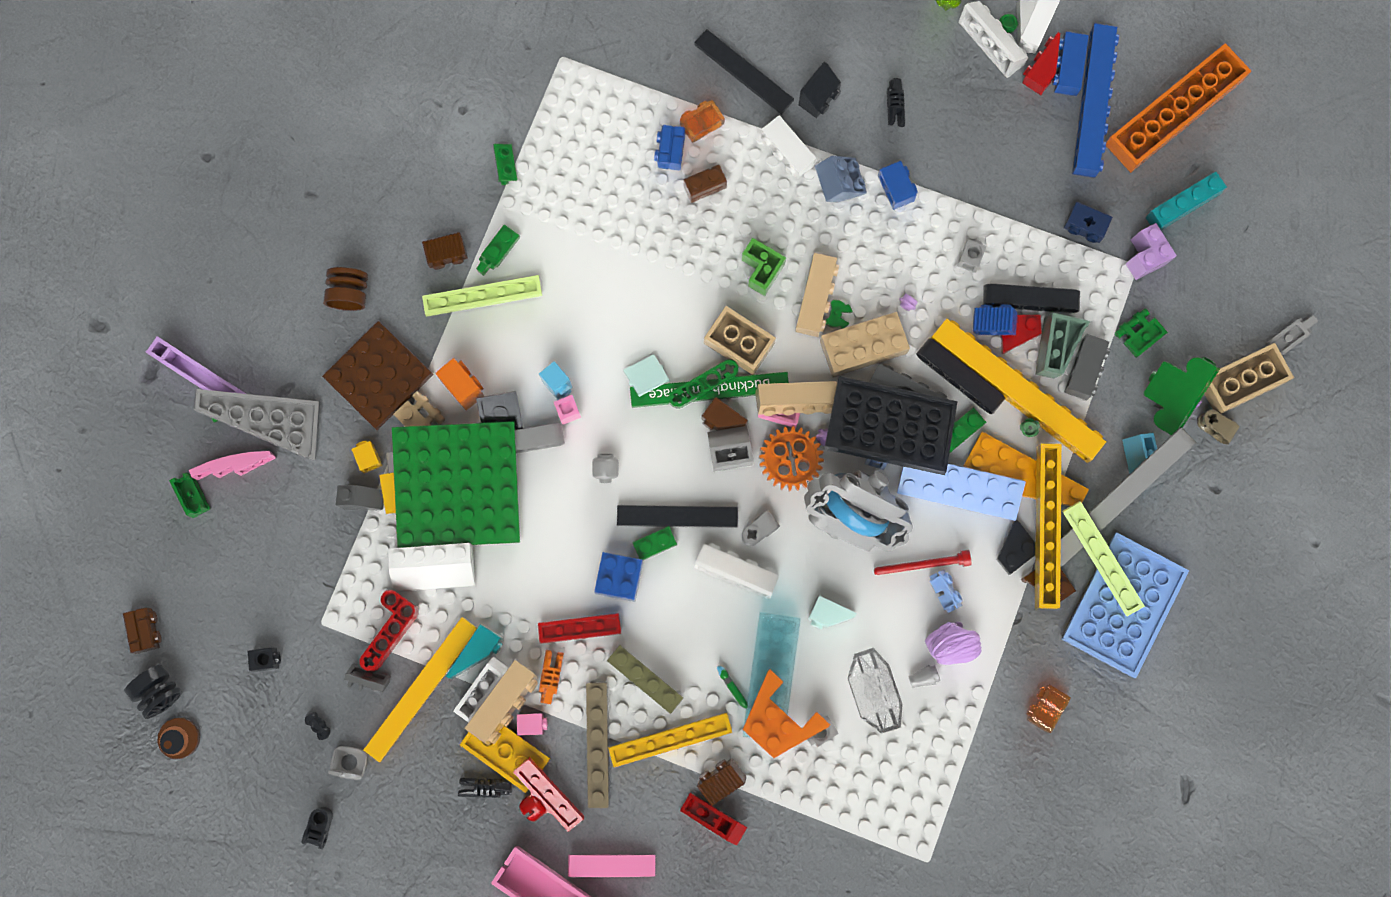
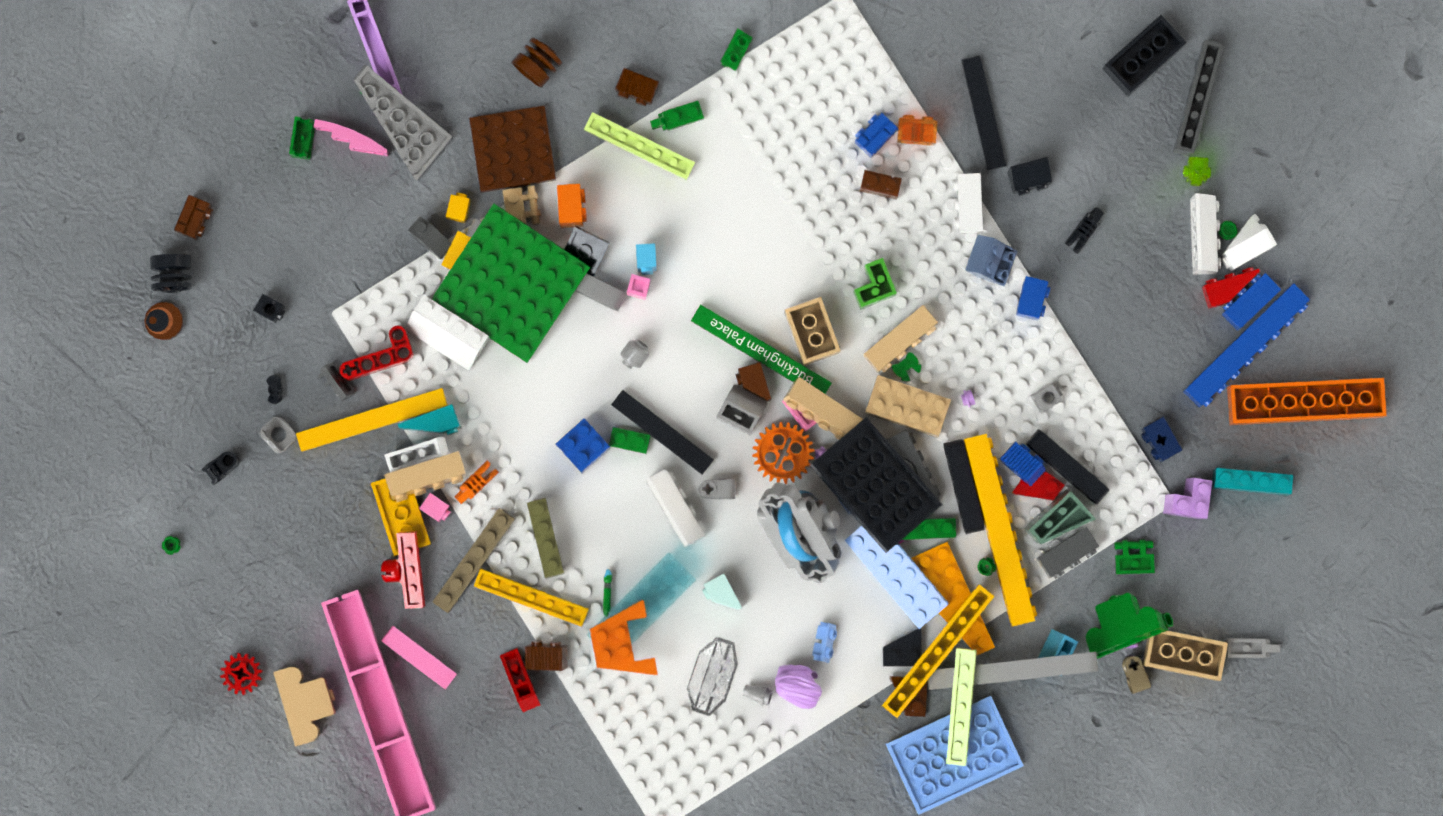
camera: 30 degrees right, 5 degrees up
(484, 788) = (366, 529): black hinge -> none
(579, 628) = (524, 462): red plate -> none
(646, 375) = (720, 304): light aqua piece -> none
(704, 385) = (758, 348): green beam -> none
(830, 733) = (656, 681): light grey brick -> none
(962, 558) = (855, 627): red piece -> none
(1048, 708) = (833, 787): clear orange brick -> none

